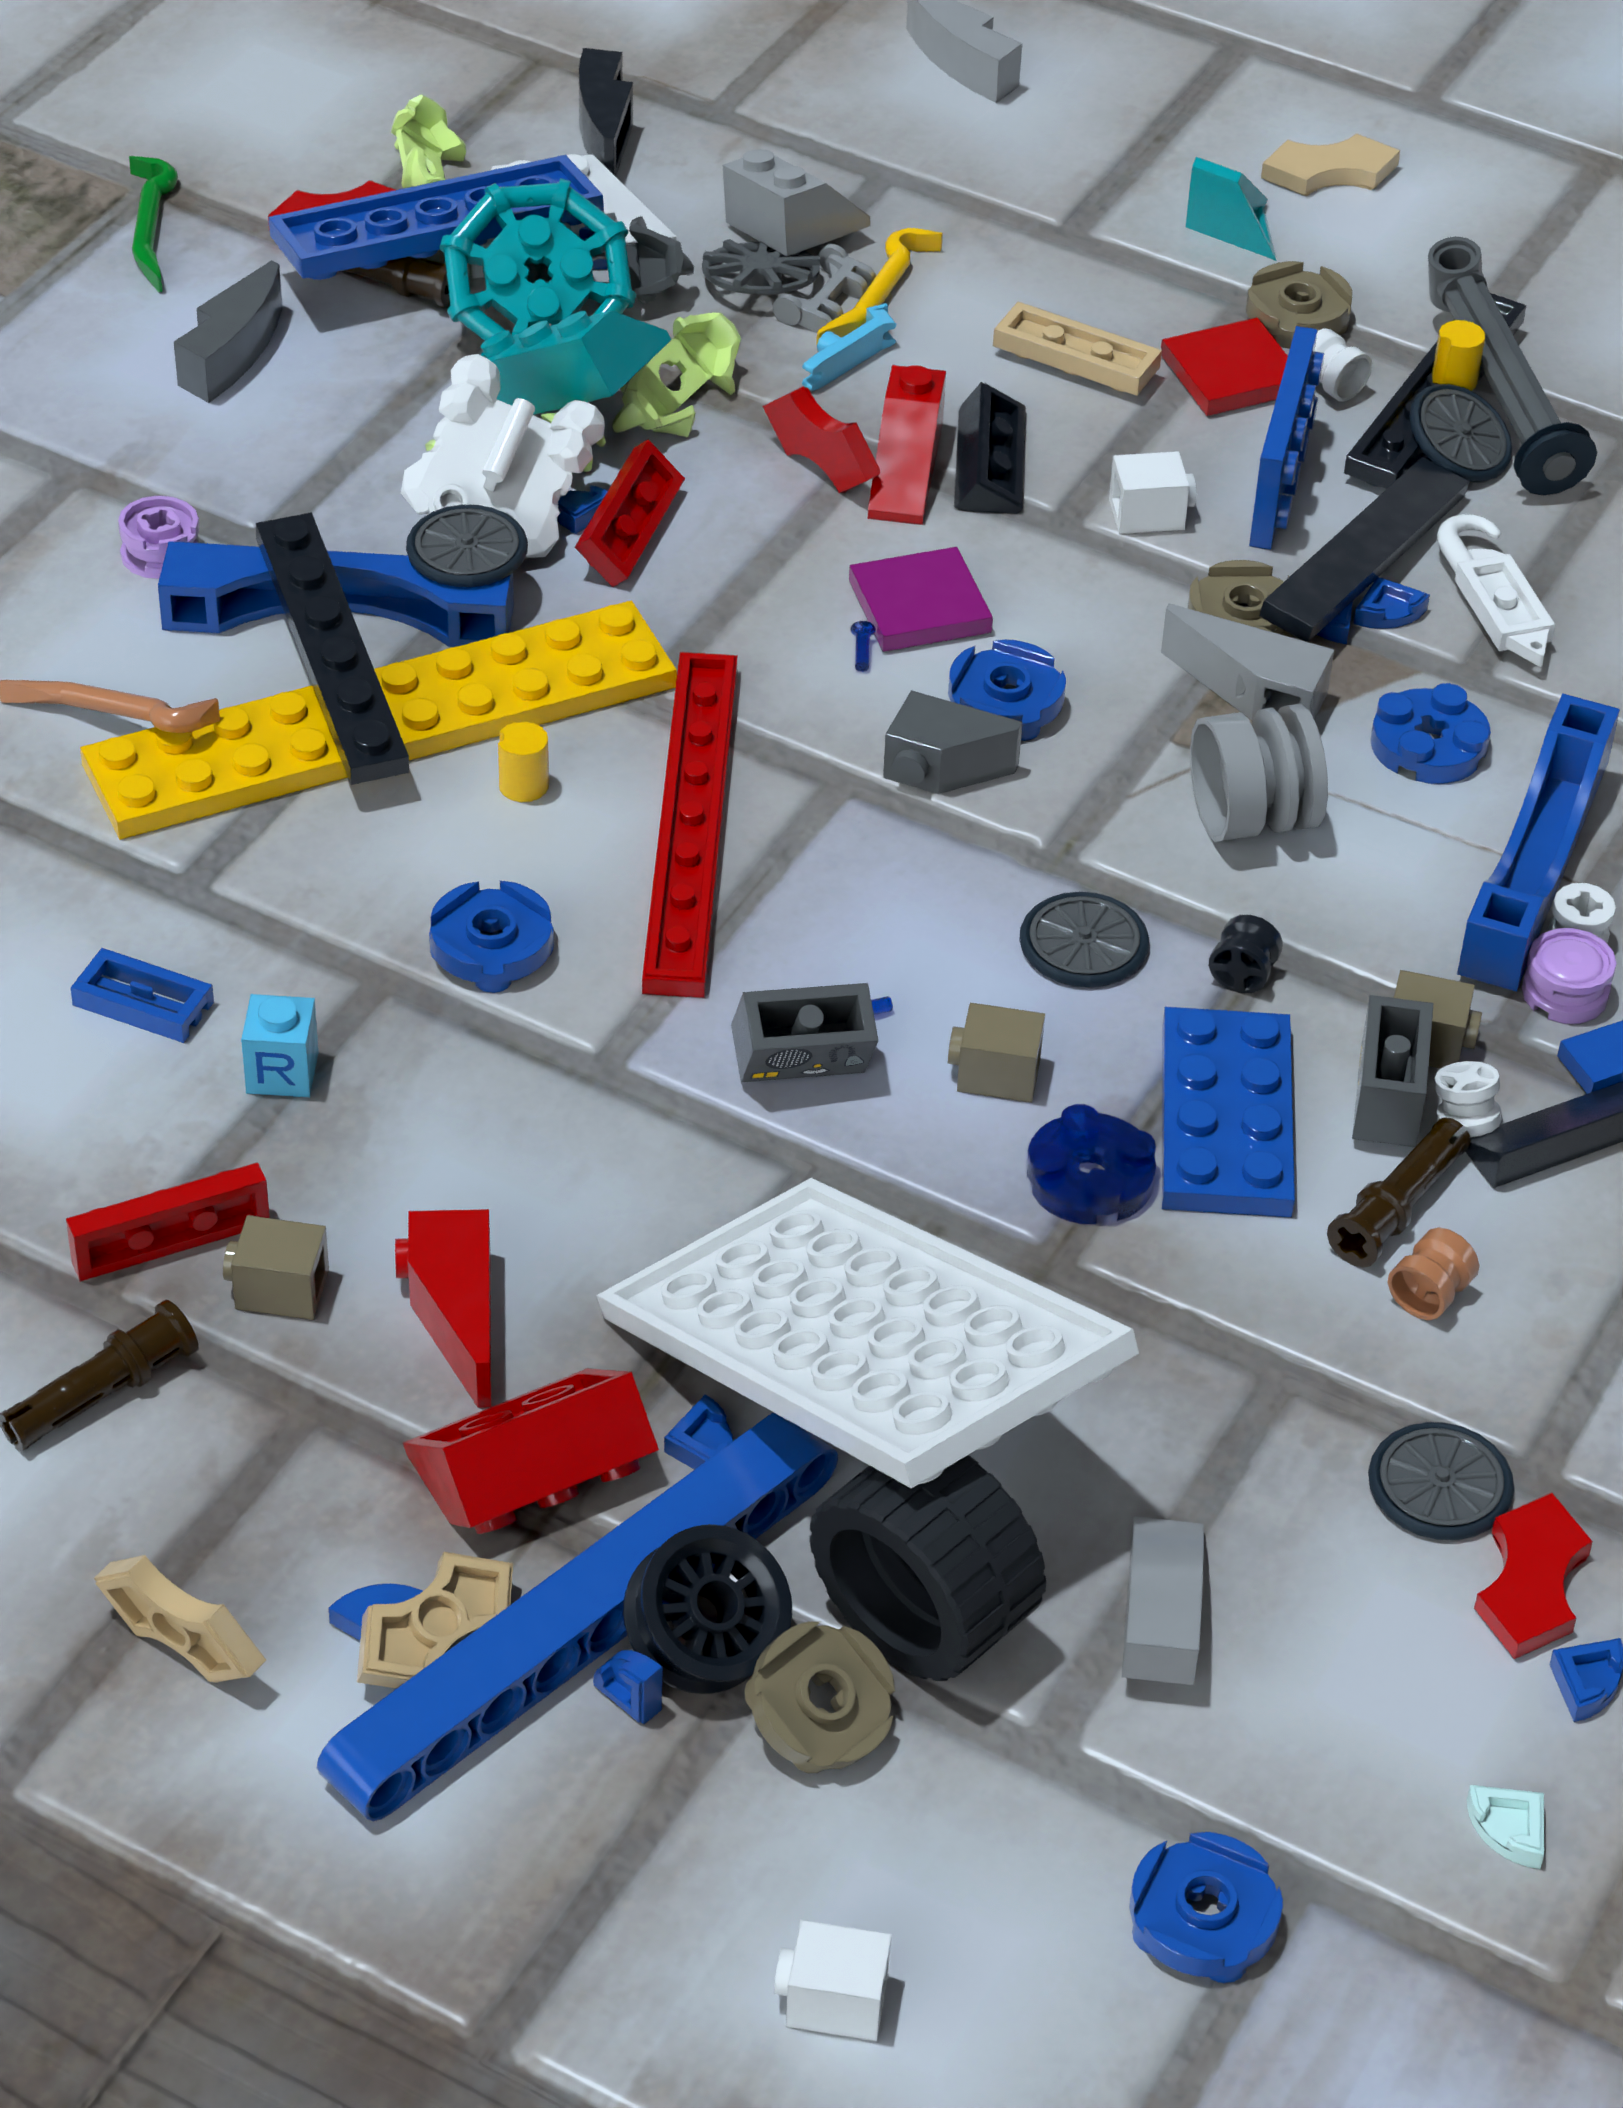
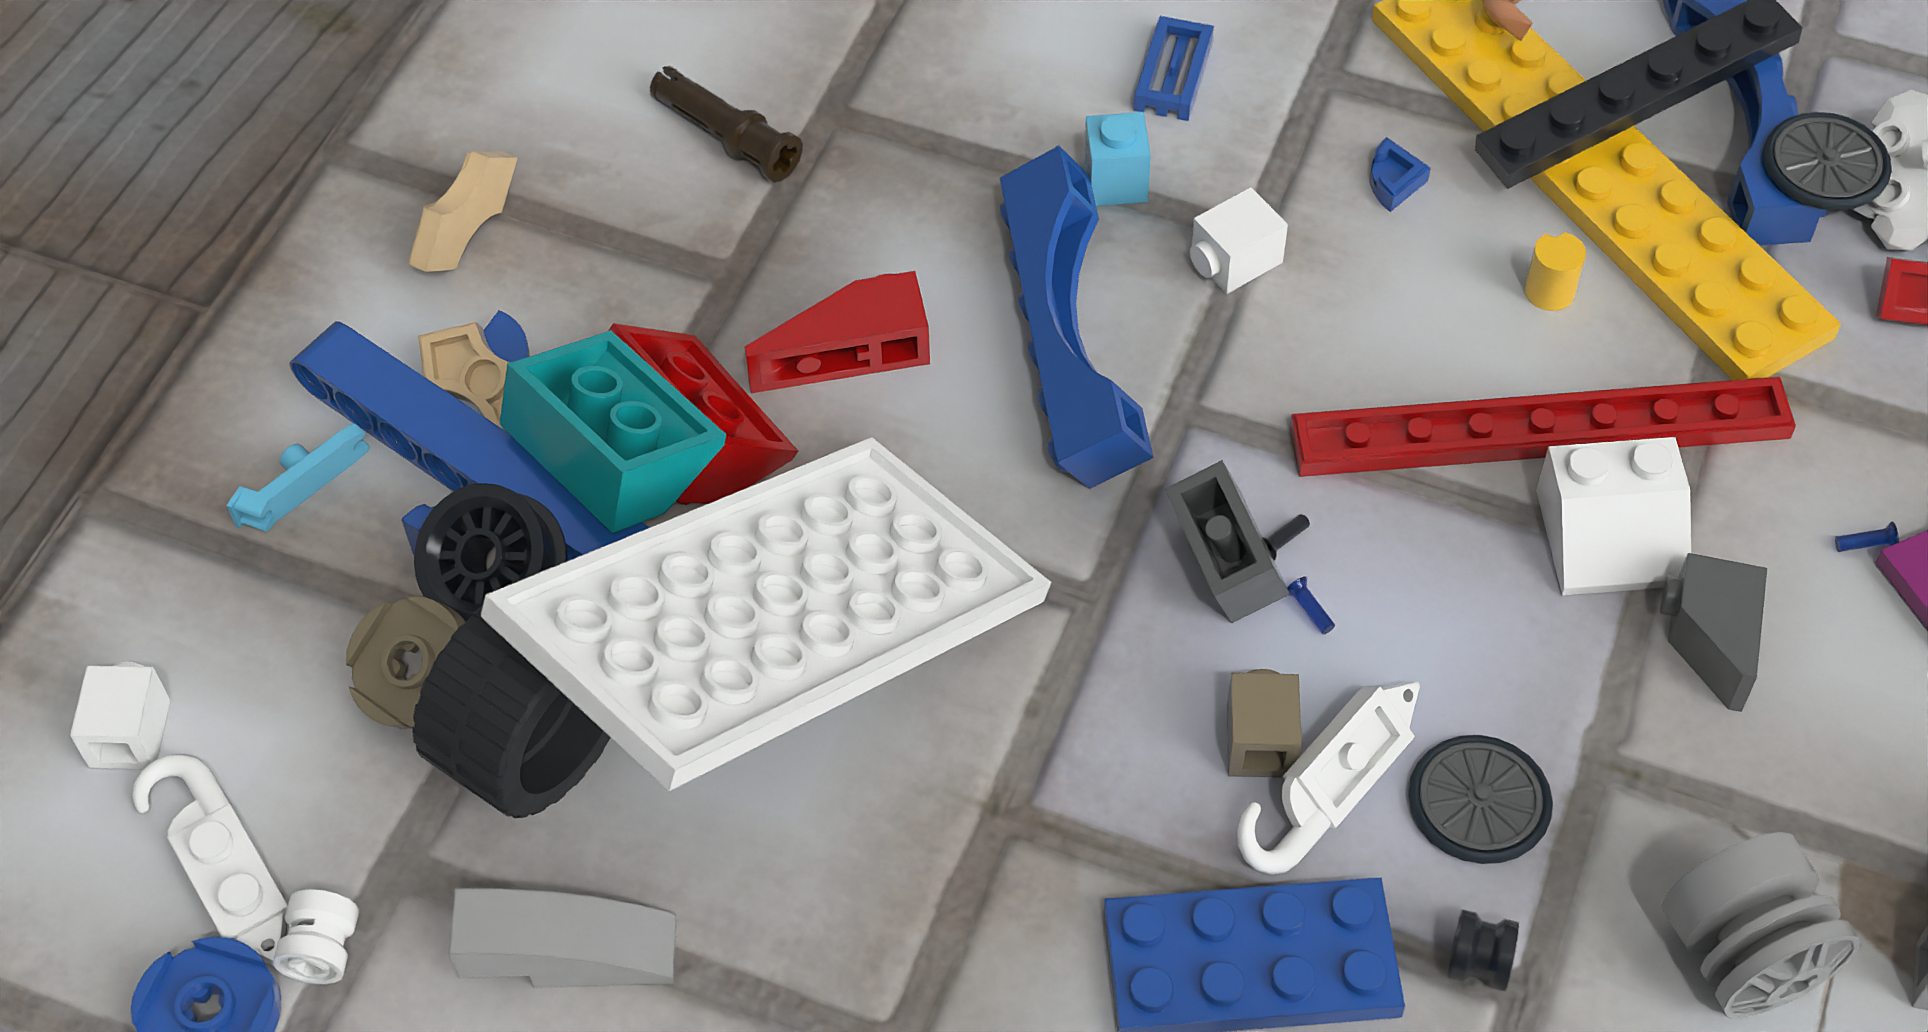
camera: 85 degrees right, 10 degrees up
(166, 1221) = (899, 128): red plate -> none
(278, 1267) = (859, 209): dark tan brick -> none
(347, 857) = (1396, 174): none -> blue tile
(349, 1104) = (1051, 221): none -> blue arch
(417, 974) = (1238, 240): none -> white brick
(491, 959) = (1314, 317): blue plate -> none
(520, 1806) = (303, 478): none -> medium azure piece
(590, 1463) = (608, 428): none -> teal slope
(817, 783) = (1615, 514): none -> white slope
(980, 679) = (1841, 710): blue plate -> none
(1021, 1901) = (219, 857): none -> white plate
(1064, 1021) = (1334, 773): none -> white plate
(1096, 1138) = (1142, 796): clear blue plate -> none
(1137, 1799) = (316, 936): none -> white wheel

